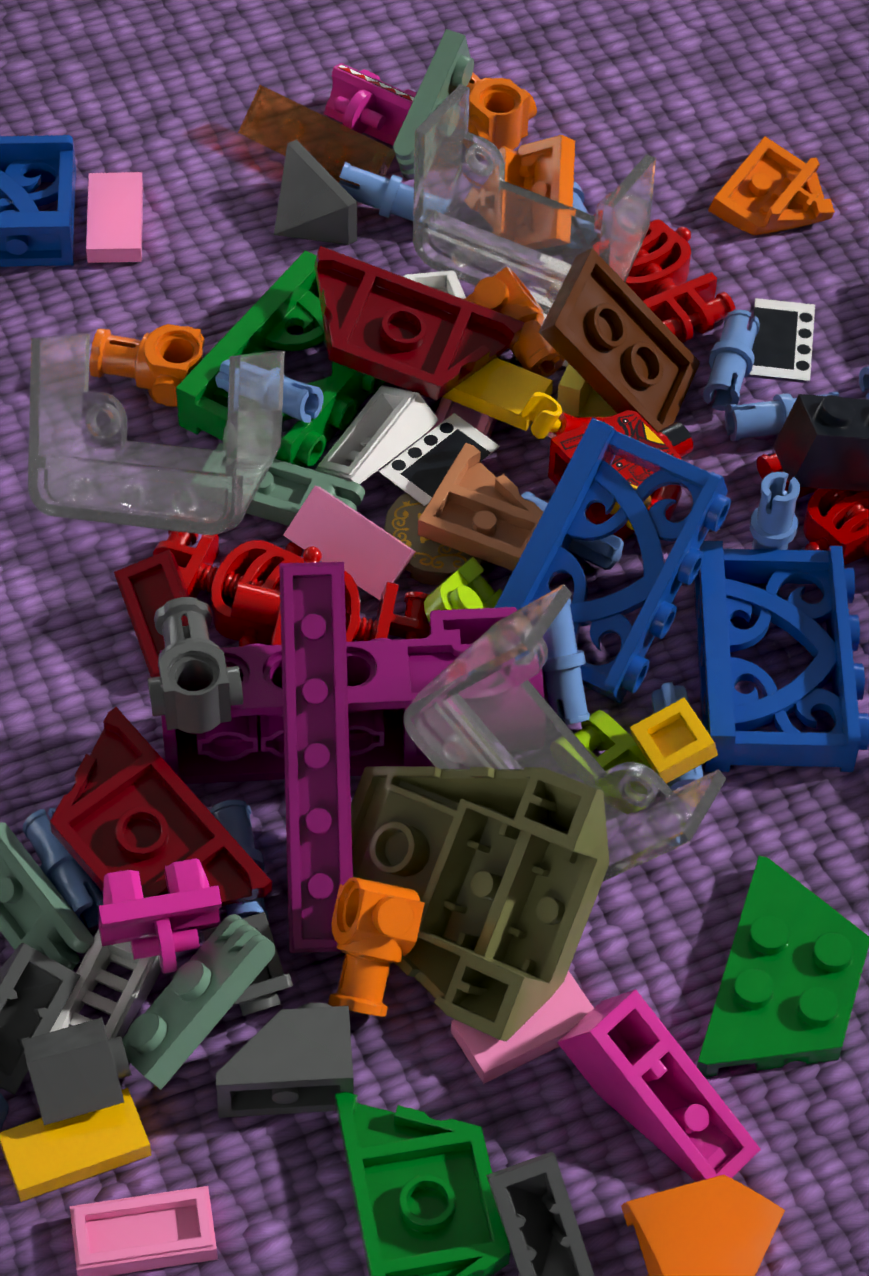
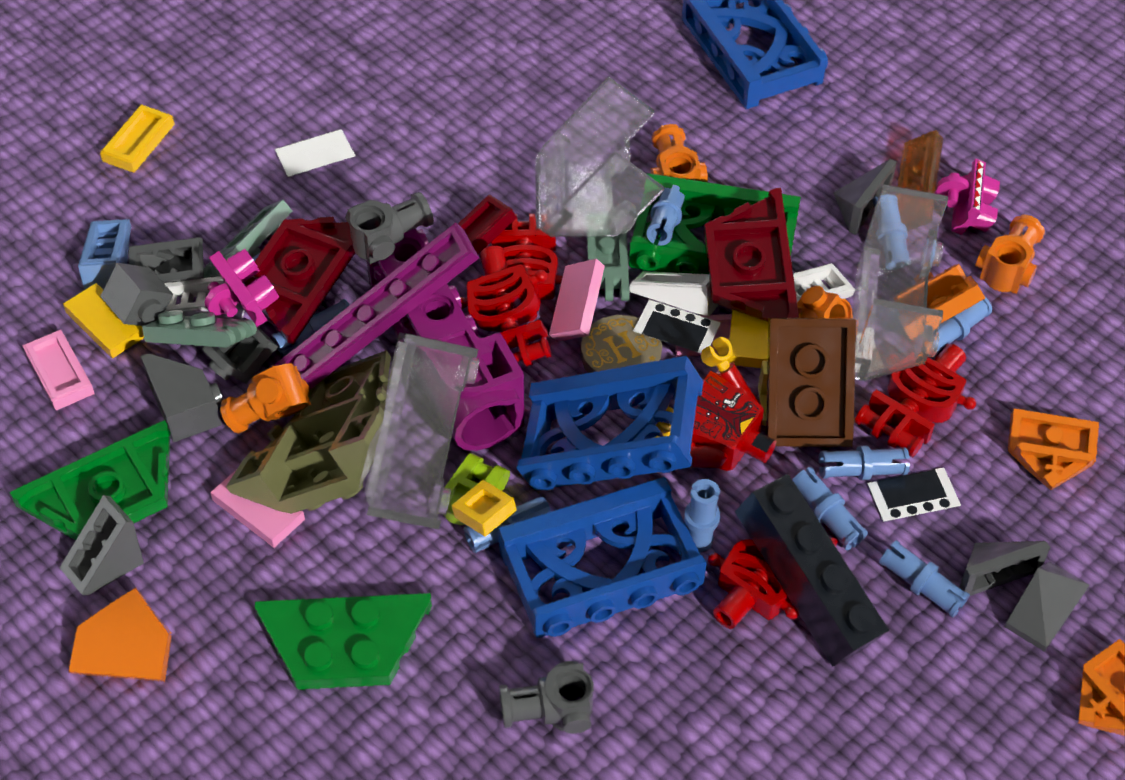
camera: 70 degrees right, 0 degrees up
(114, 217) = (792, 111): bright pink tile -> none
(447, 70) = (986, 218): sand green hinge -> none
(463, 591) = (544, 362): lime plate -> none
(479, 513) = (636, 344): nougat wing -> none
(563, 669) = (521, 427): medium blue pin -> none
(657, 1087) = (222, 584): dark pink slope -> none

